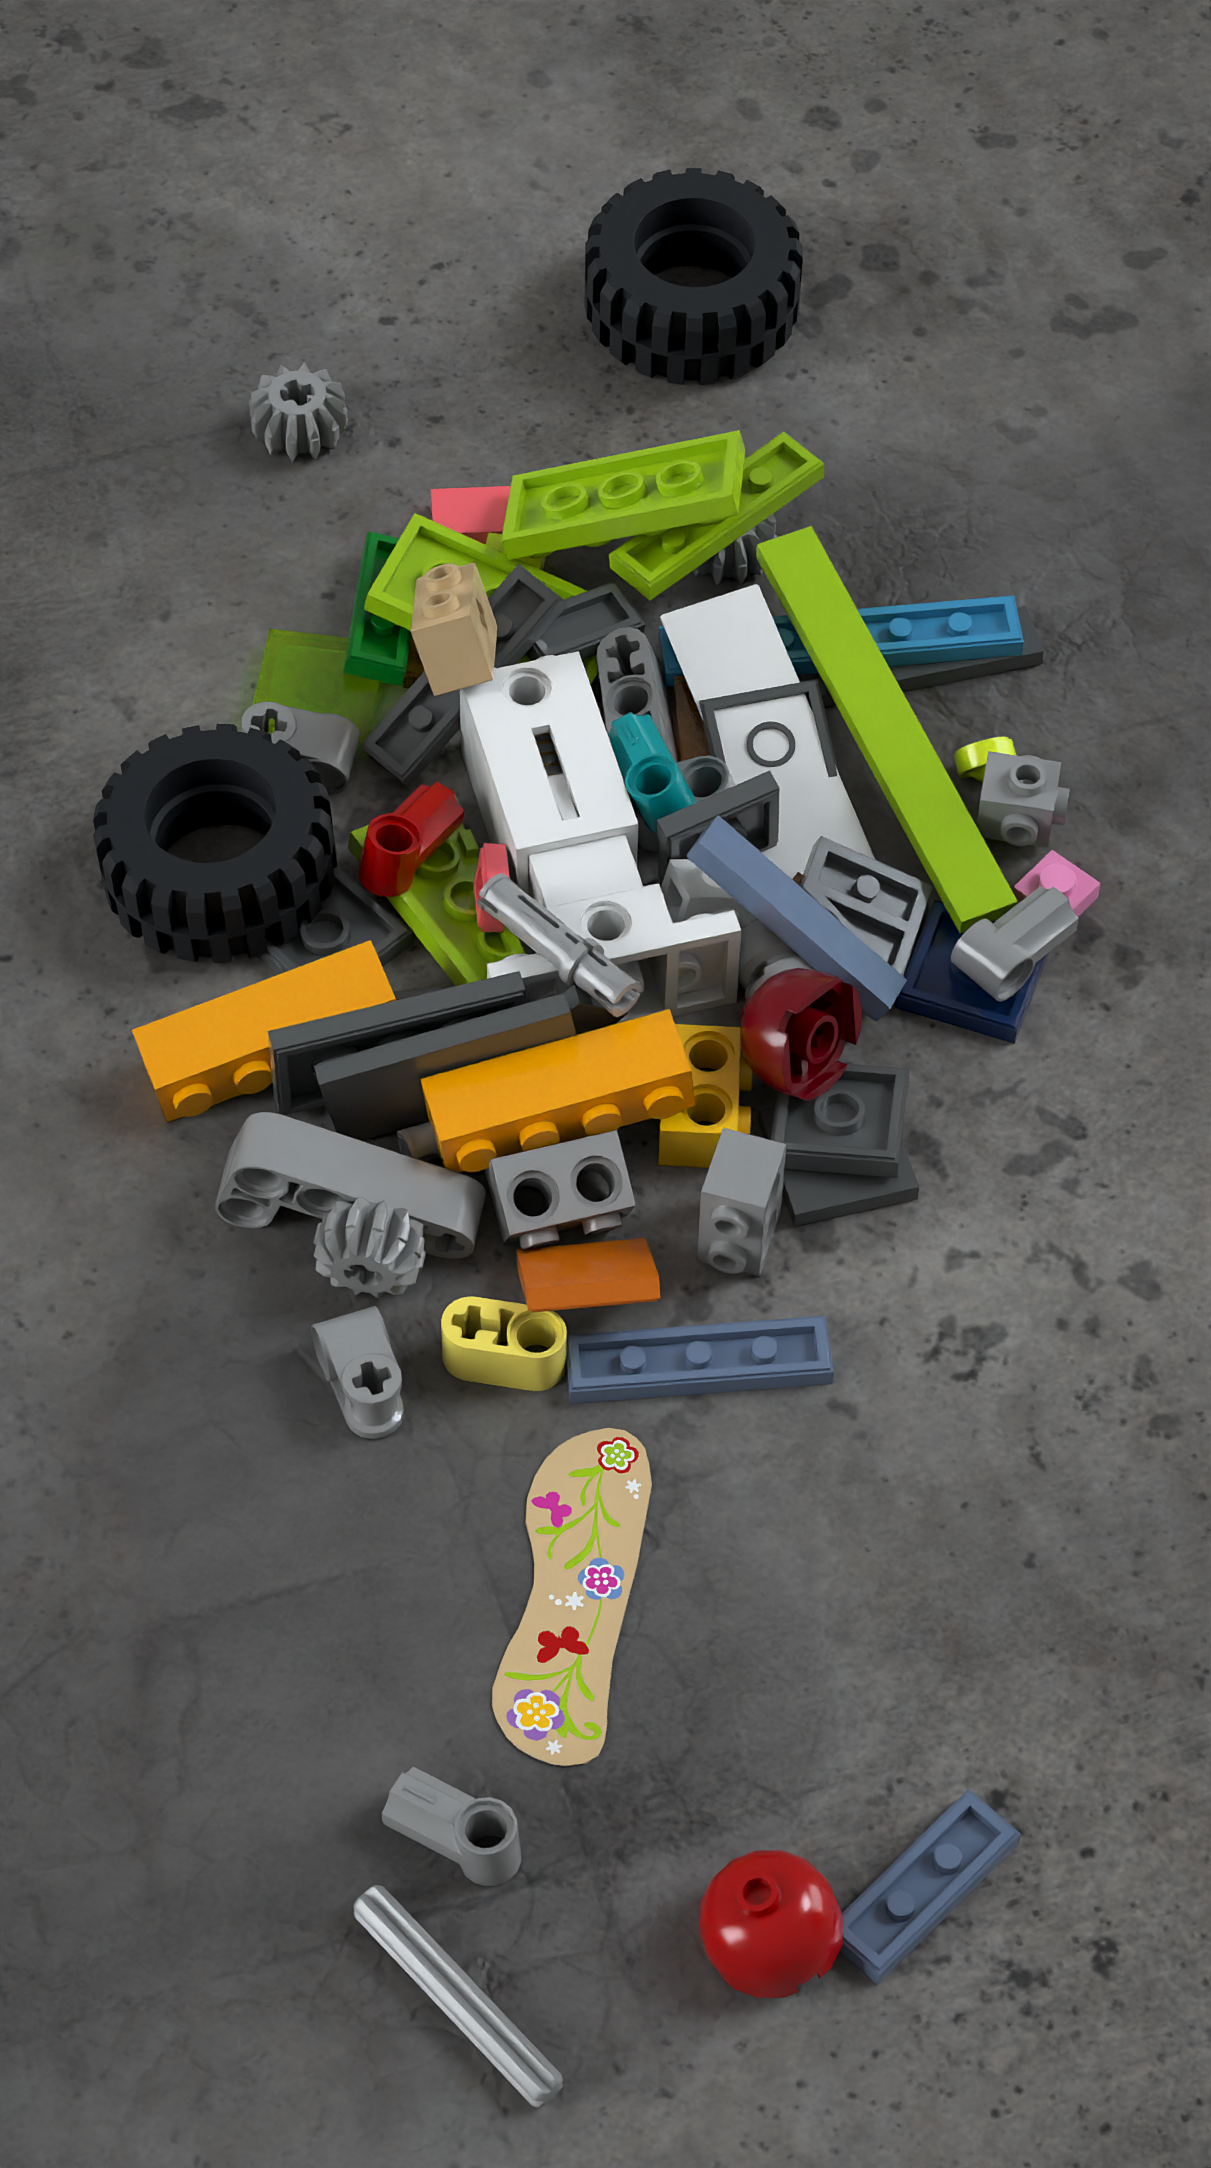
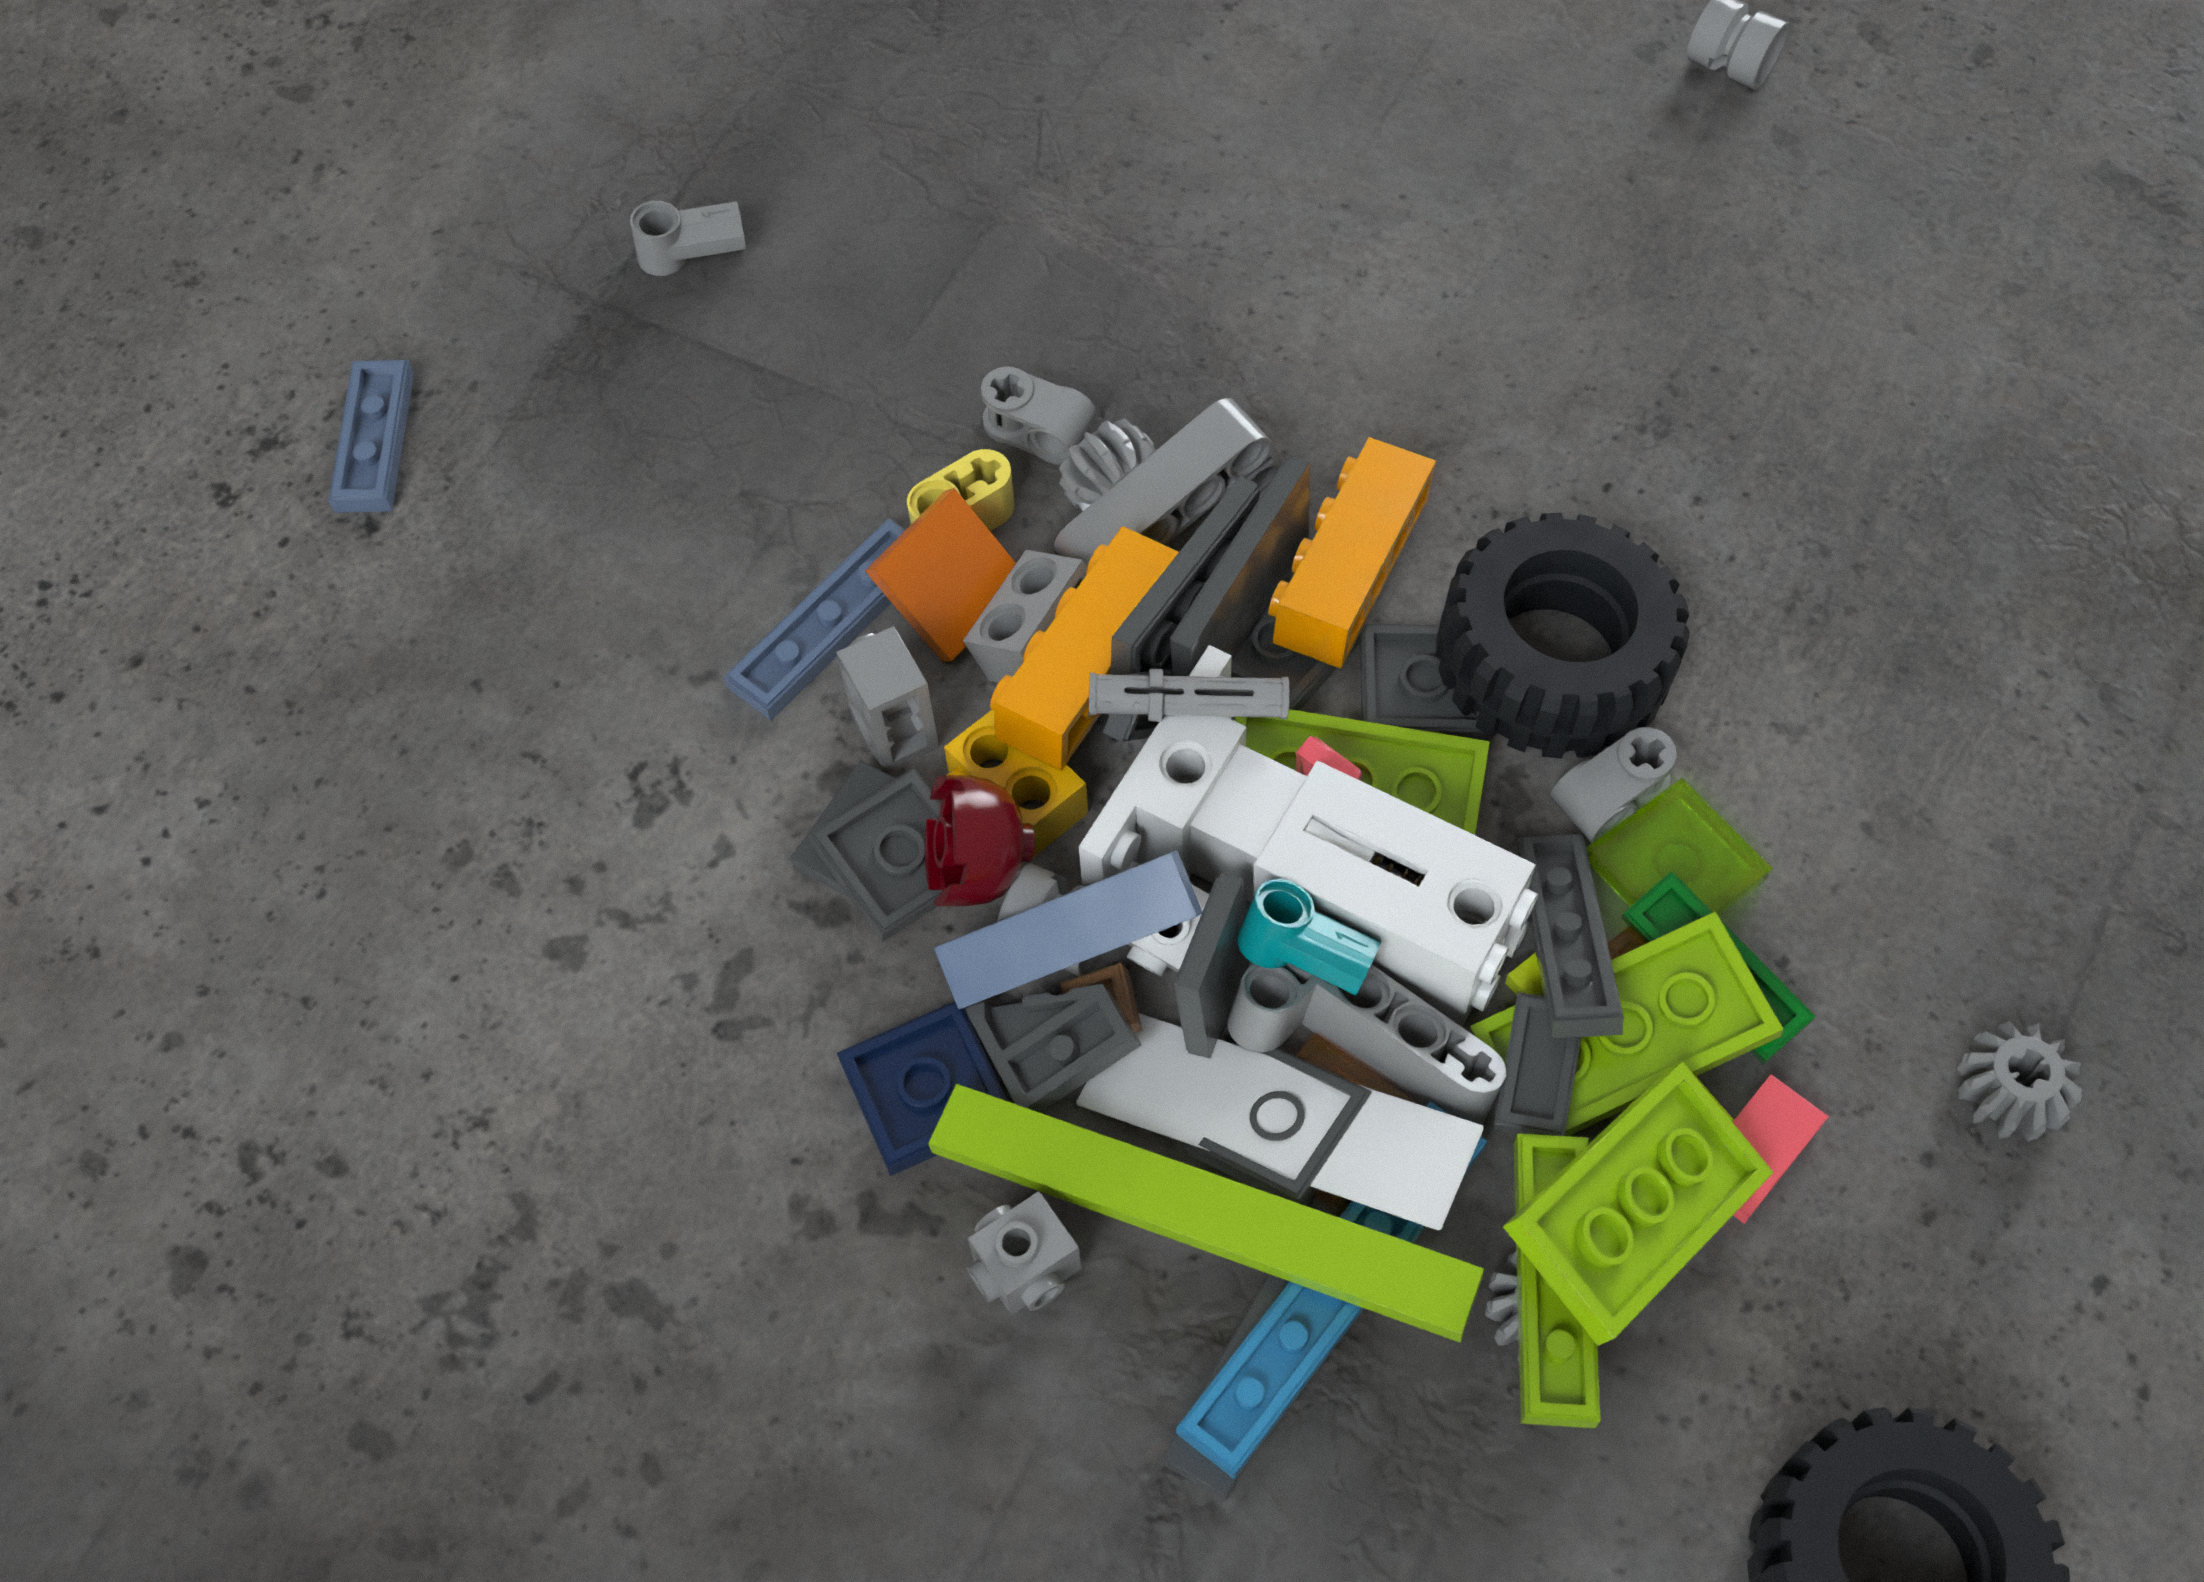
camera: 140 degrees right, 5 degrees up
(406, 838) = (1434, 755): red piece -> none
(454, 628) = (1580, 881): tan brick -> none
(458, 1996) = (602, 172): light grey axle -> none
(586, 1544) = (793, 465): tan sticker -> none
(770, 1923) = (441, 324): red cylinder -> none
(972, 758) = (1098, 1281): neon yellow tile -> none
(1005, 952) = (894, 1083): light grey piece -> none
(1063, 875) = (926, 1221): bright pink plate -> none

